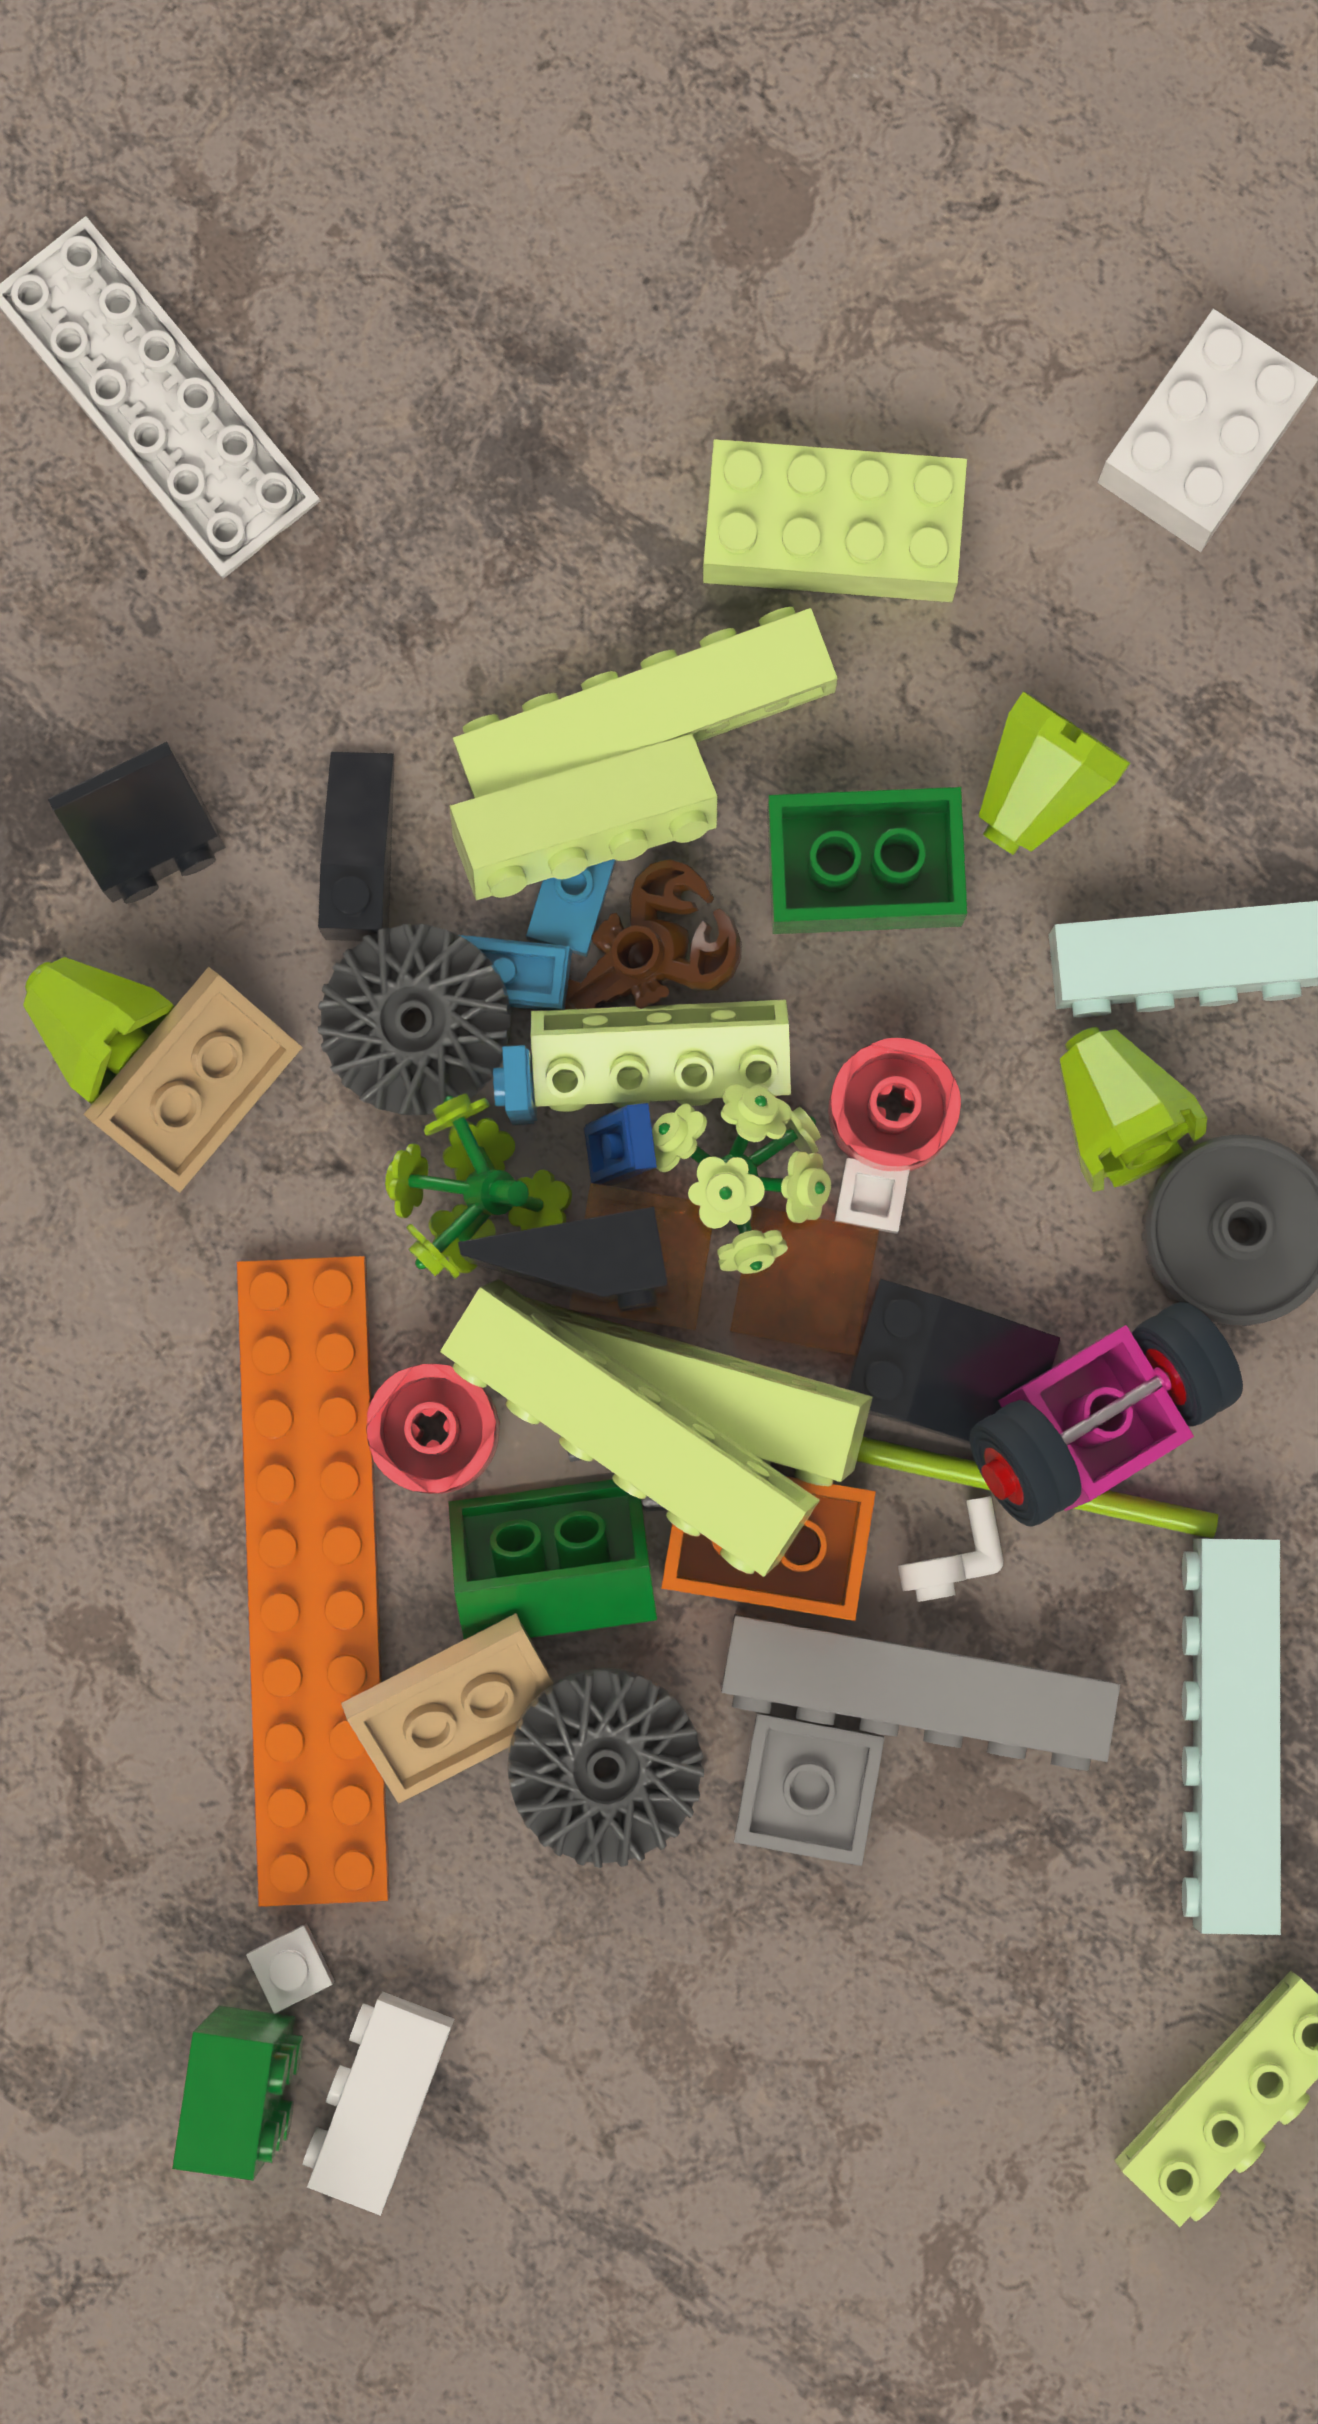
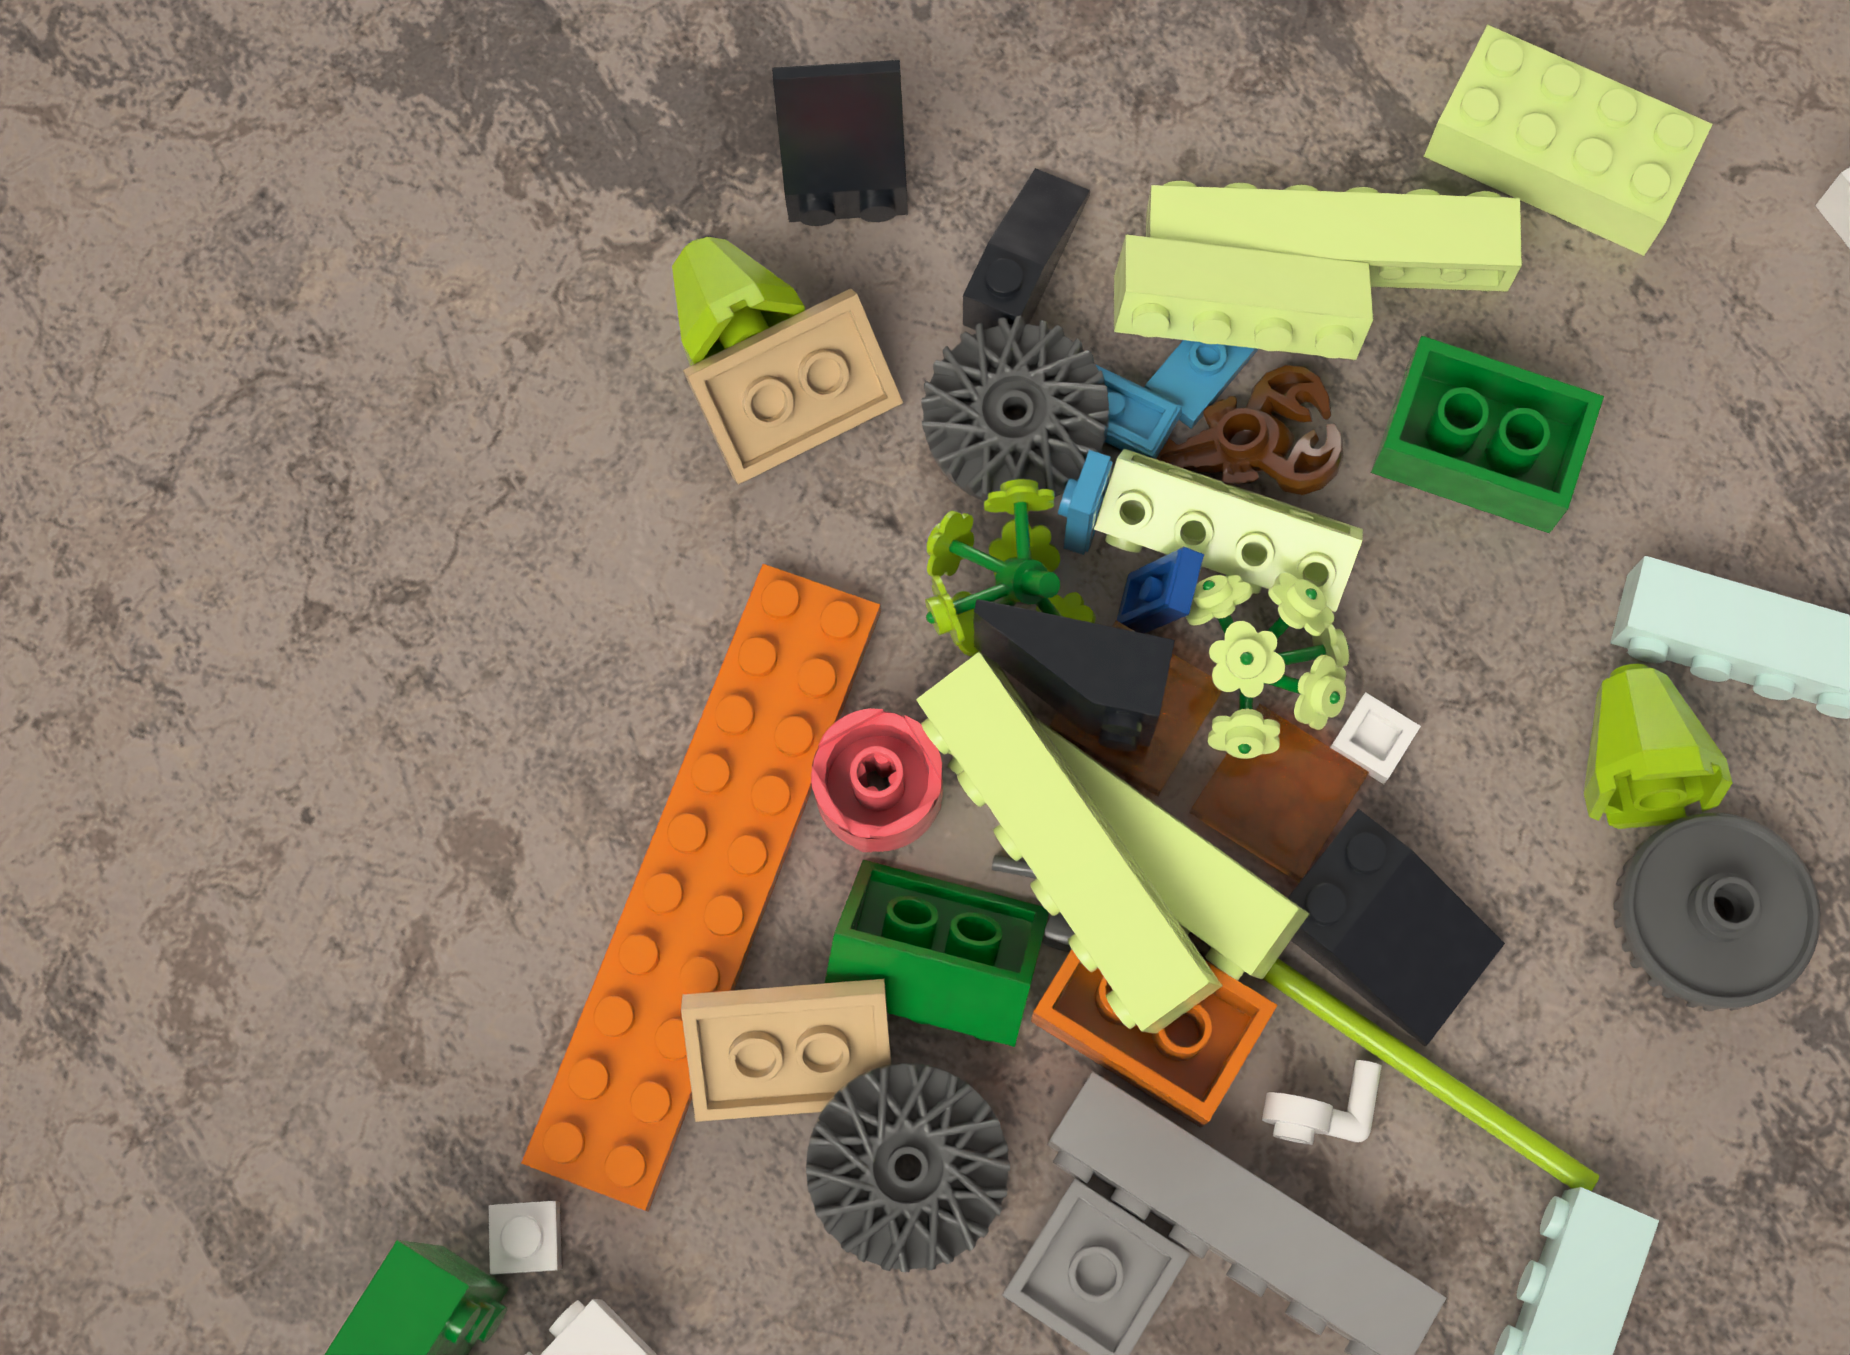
camera: 20 degrees right, 10 degrees down
(925, 1088) = (1451, 632): coral brick -> none
(1043, 776) = (1684, 422): lime cone -> none
(1105, 1413) = (1532, 1023): brick -> none

